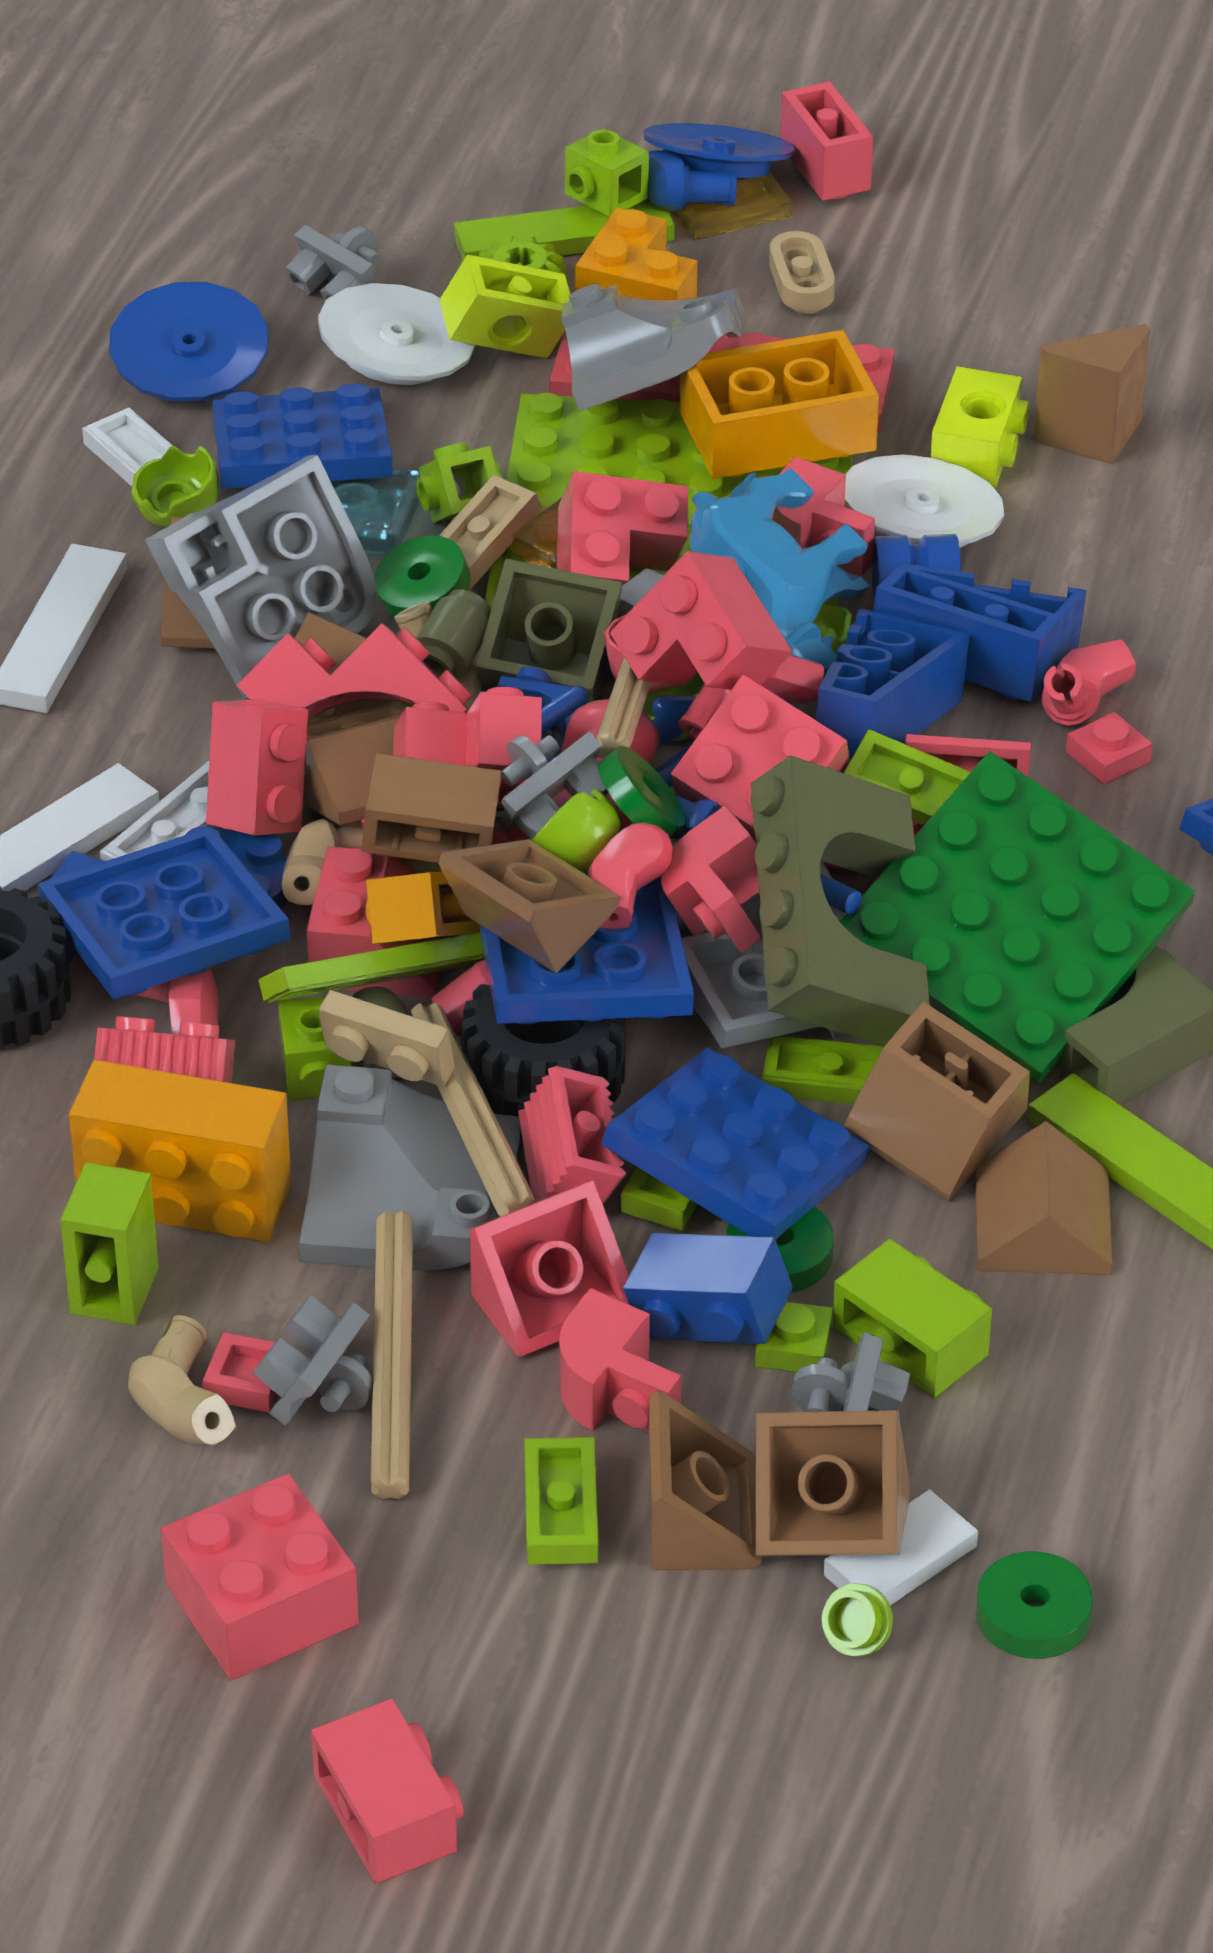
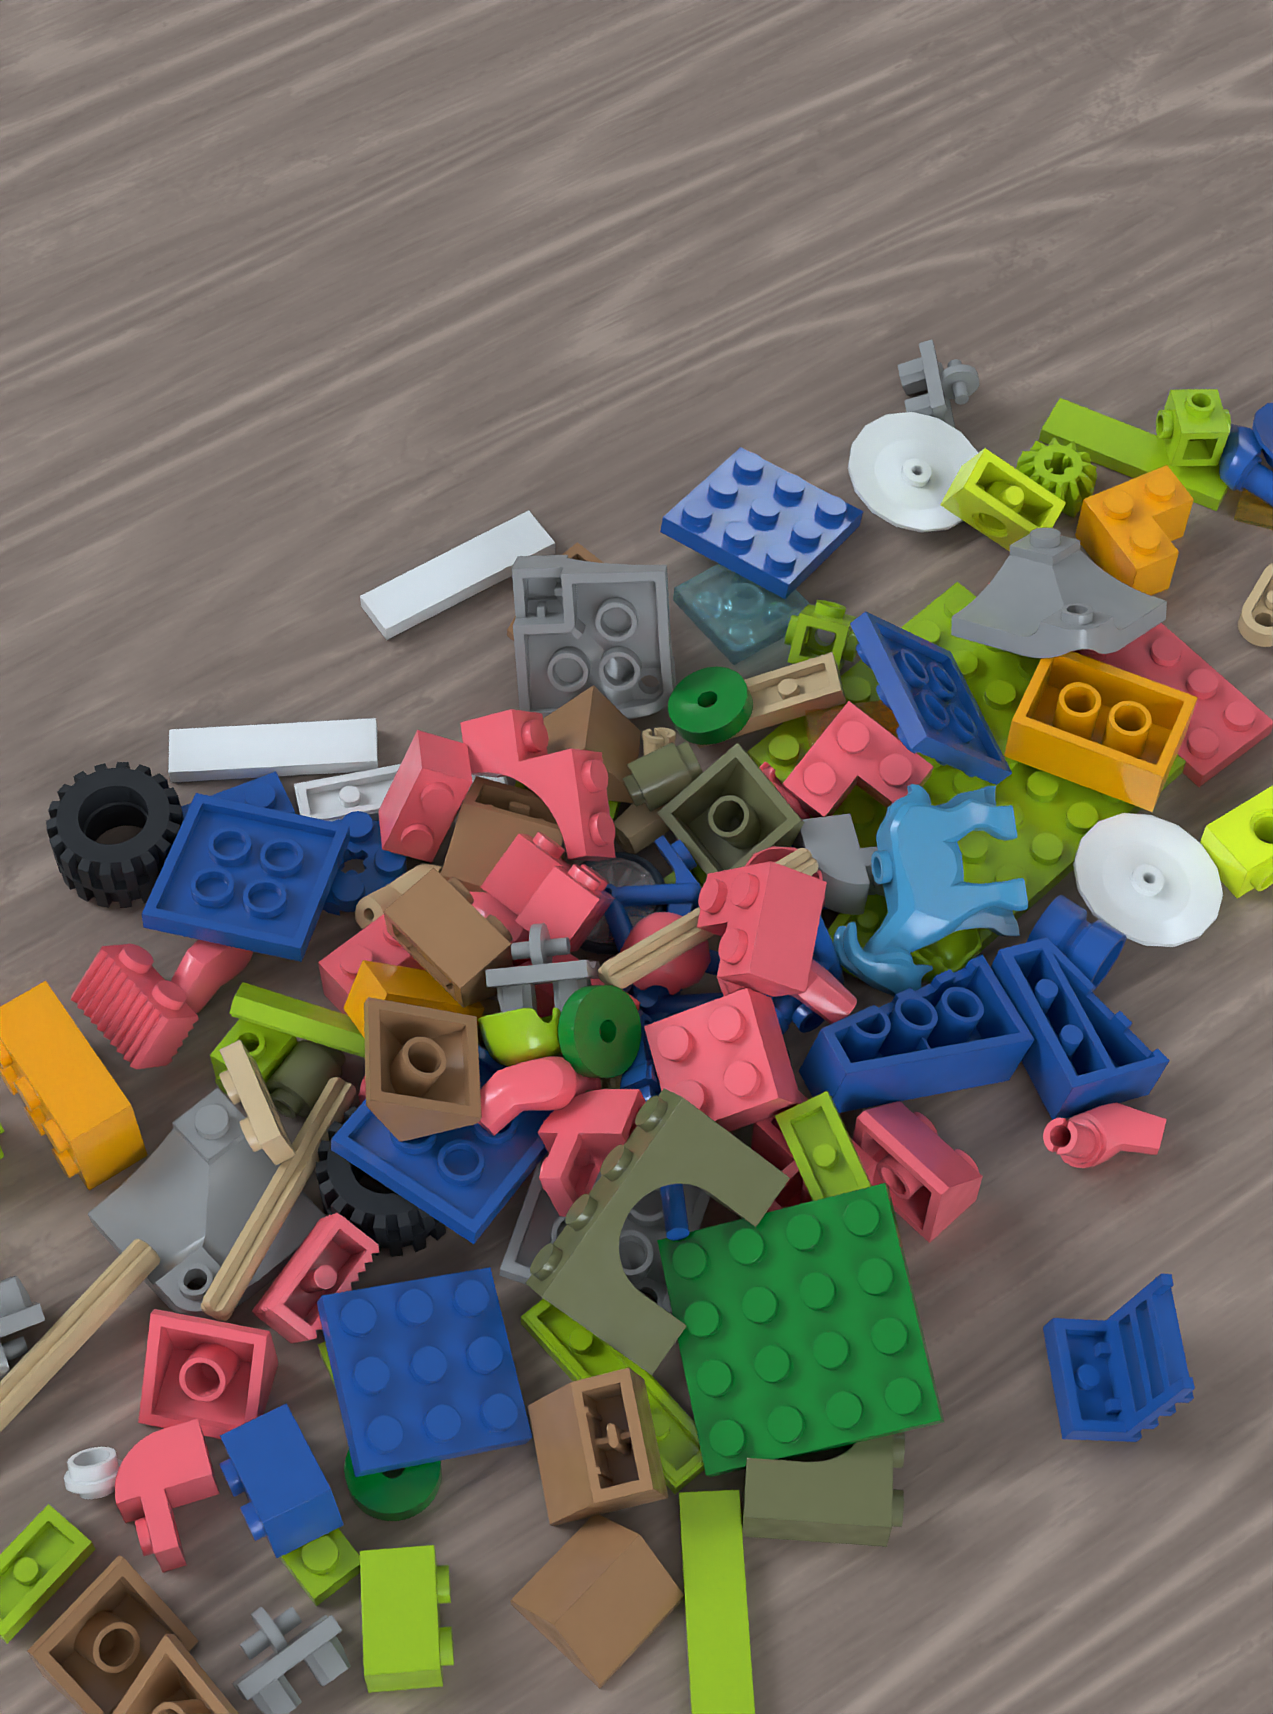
camera: 40 degrees right, 15 degrees up
(124, 442) = (653, 459): white tile -> none
(175, 485) = (634, 510): lime hair -> none
(188, 341) = (766, 388): blue piece -> none
(533, 1400) = (92, 1472): none -> white plate
(603, 444) = (929, 699): none -> blue plate
(825, 513) = (1043, 837): coral brick -> none
(1109, 748) = (1075, 1206): coral plate -> none

